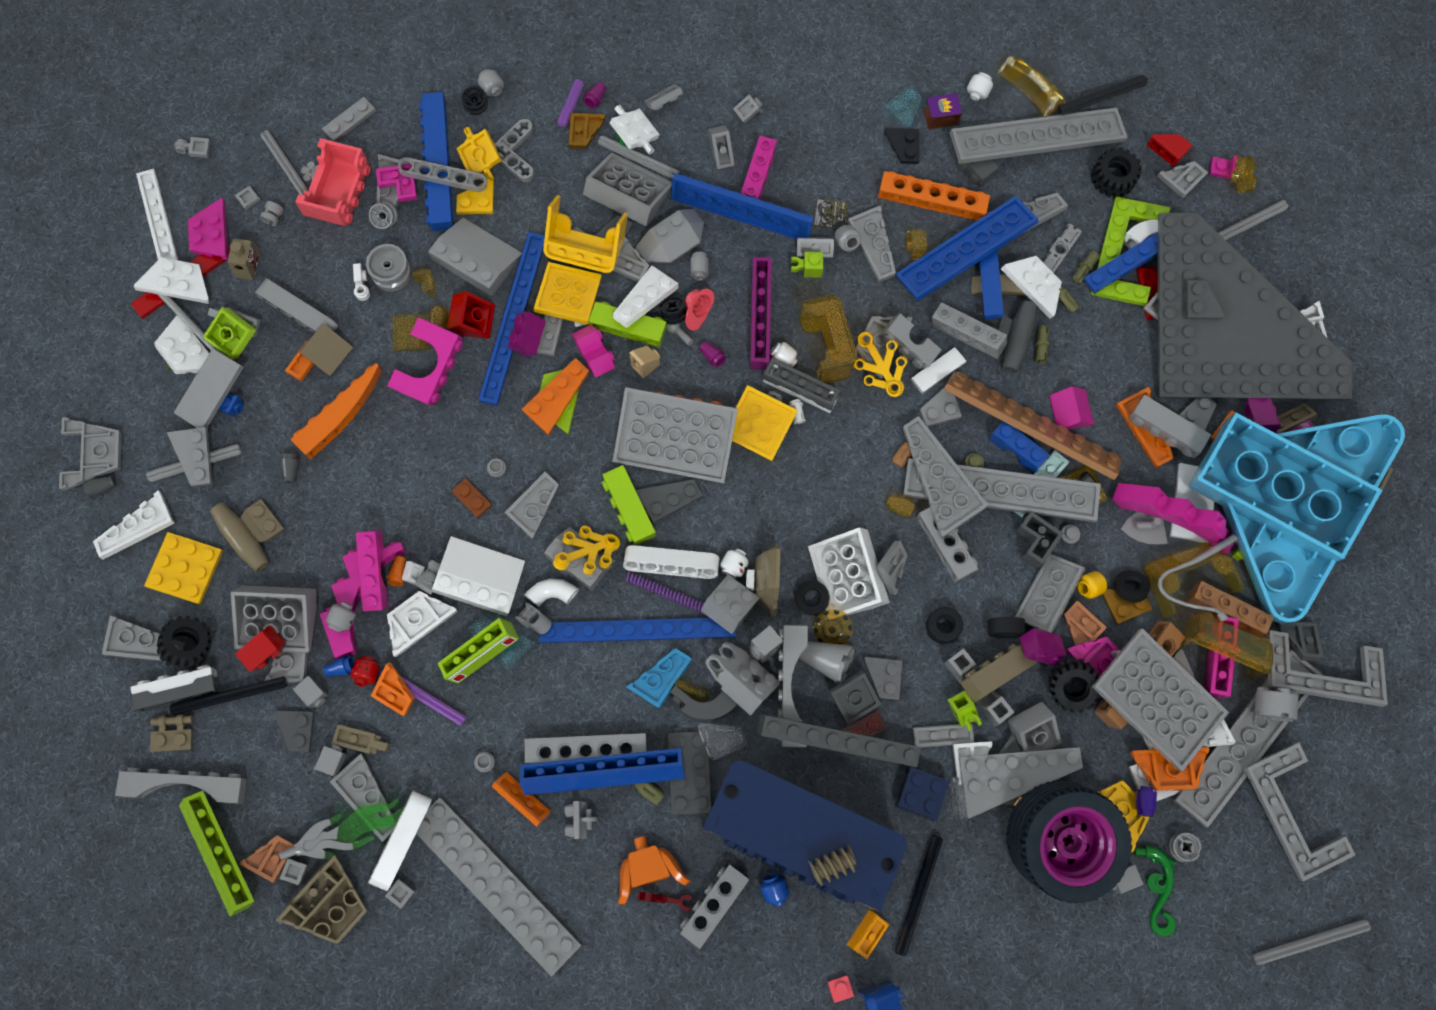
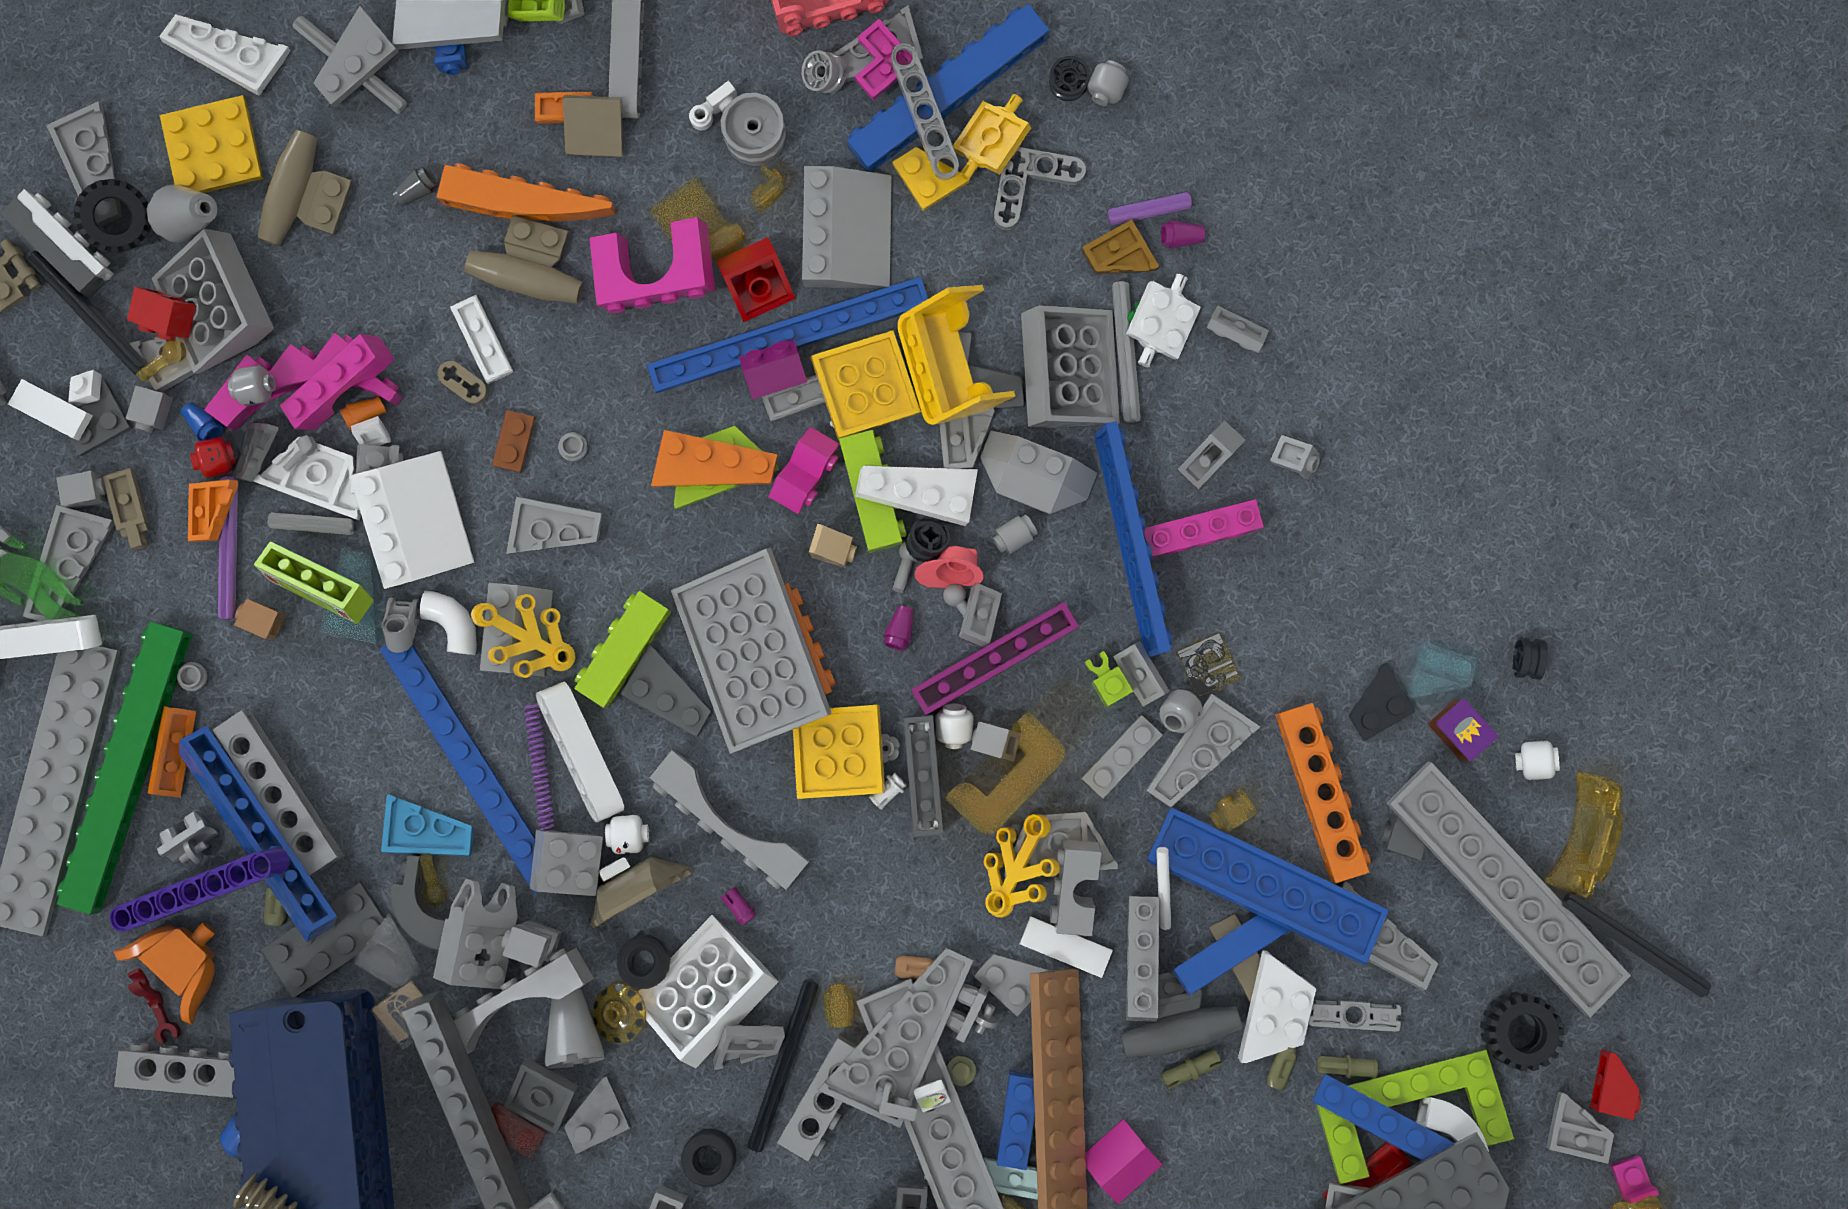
camera: 65 degrees right, 10 degrees up
(212, 599) = (180, 212): none -> light grey cone
(270, 752) = (50, 410): none -> white tile
(272, 724) = (85, 388): none -> white plate
(288, 656) = (173, 352): none -> clear yellow bar
(376, 643) = (253, 450): none -> flat silver wing
(377, 430) = (528, 263): none -> dark tan plate
(397, 611) = (307, 447): none -> light grey hand
(401, 482) = (481, 339): none -> white tile
(417, 502) = (467, 377): none -> dark tan beam
(441, 639) = (311, 523): none -> light grey axle
(477, 700) = (259, 619): none -> medium nougat brick
(513, 834) = (123, 769): none -> green brick
(614, 832) = (199, 889): none -> dark purple beam
(713, 316) = (955, 596): none -> light grey bar
(722, 516) = (682, 782): none -> light grey arch
(732, 307) = (980, 615): none -> light grey plate
(761, 751) = (390, 1013): none -> clear piece
(805, 338) = (995, 741): none -> light grey brick
(814, 527) = (738, 906): none -> magenta pin
(853, 283) = (1121, 756): none -> light grey plate
(916, 557) = (782, 1066): none -> black axle
(925, 59) = (1530, 658): none -> black wheel
(932, 295) = (1163, 888): none -> white bar
(946, 434) = (974, 999): none -> light grey hips
(975, 498) = (898, 1108): none -> light grey bracket
(980, 478) = (932, 1095): none -> white tile

